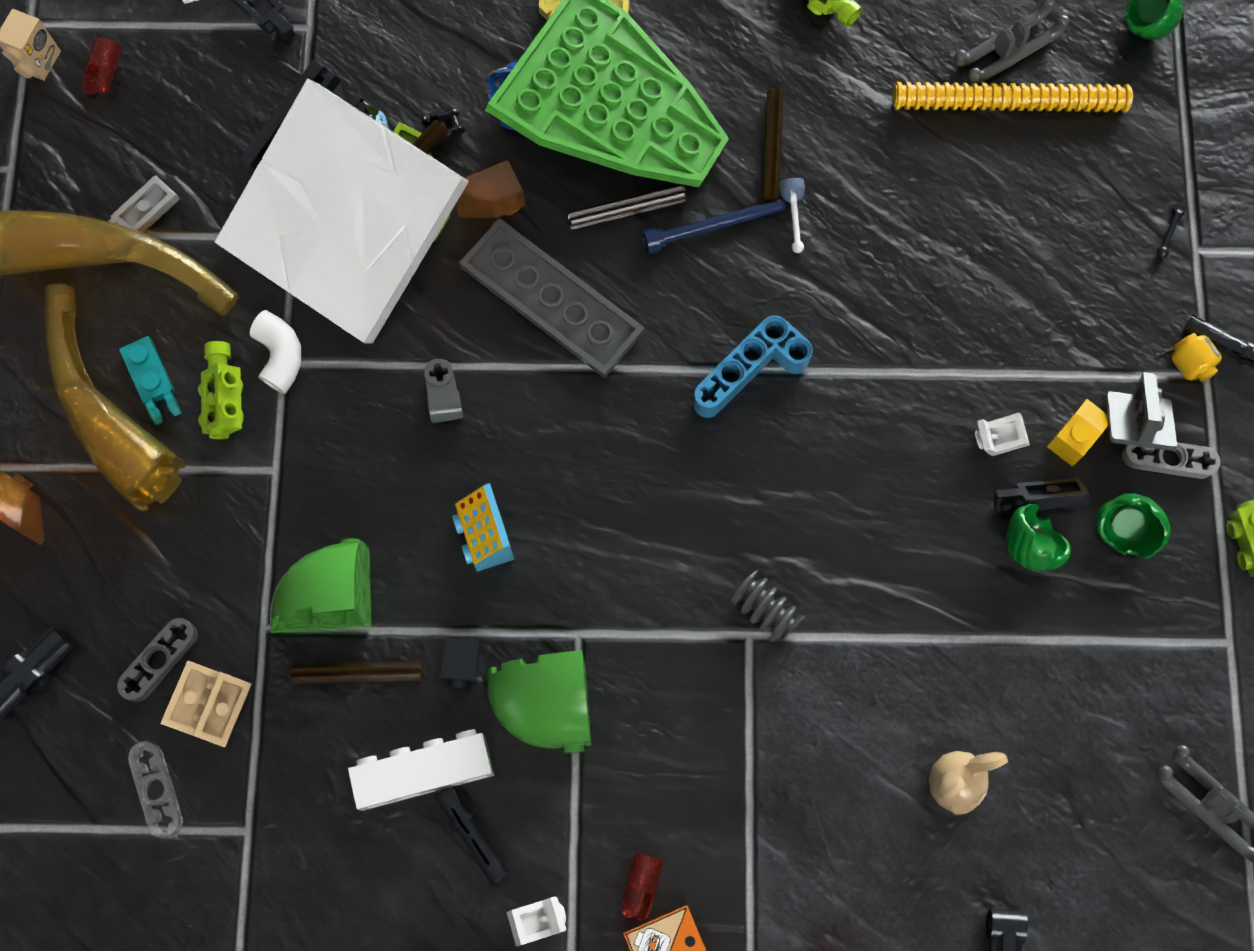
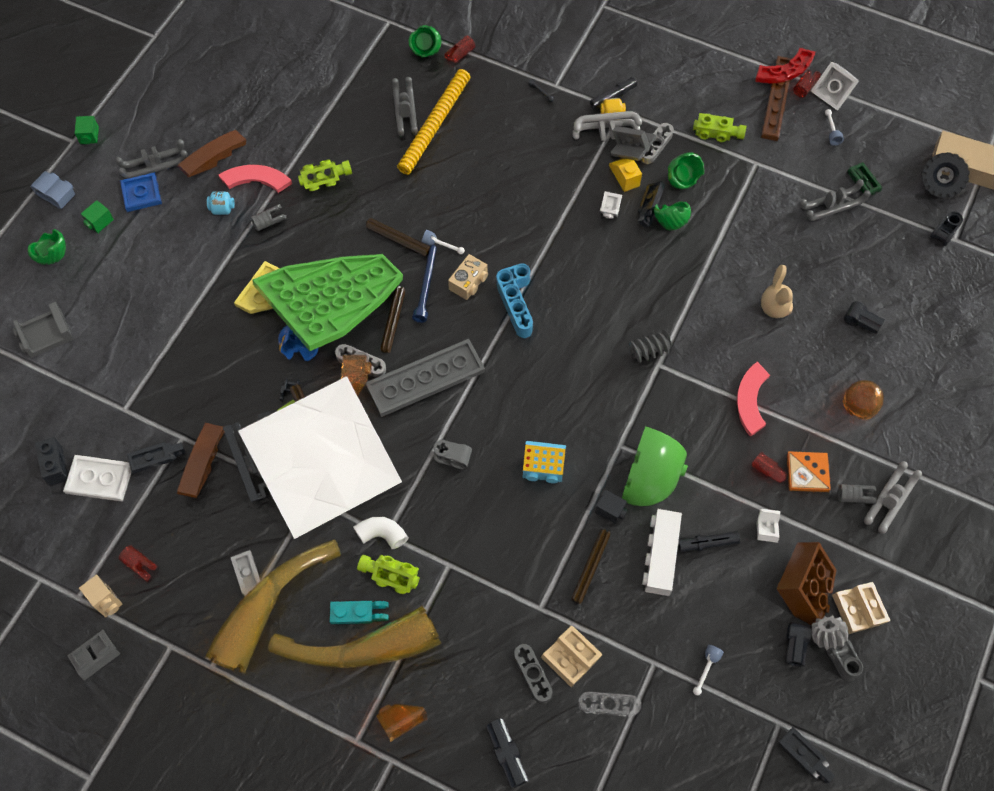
camera: 65 degrees left, 10 degrees down
(274, 64) = (200, 460): none -> reddish brown slope
(290, 915) = (713, 655): none -> hinge
(325, 590) = (538, 558): bright green brick -> none
(530, 184) = (374, 360): none -> light grey beam
(752, 278) = (468, 277): none -> tan brick
(758, 800) = (747, 399): none -> coral tile
(1162, 353) = (606, 120): none -> light grey piece
(1174, 70) = (460, 49): none -> clear red hinge

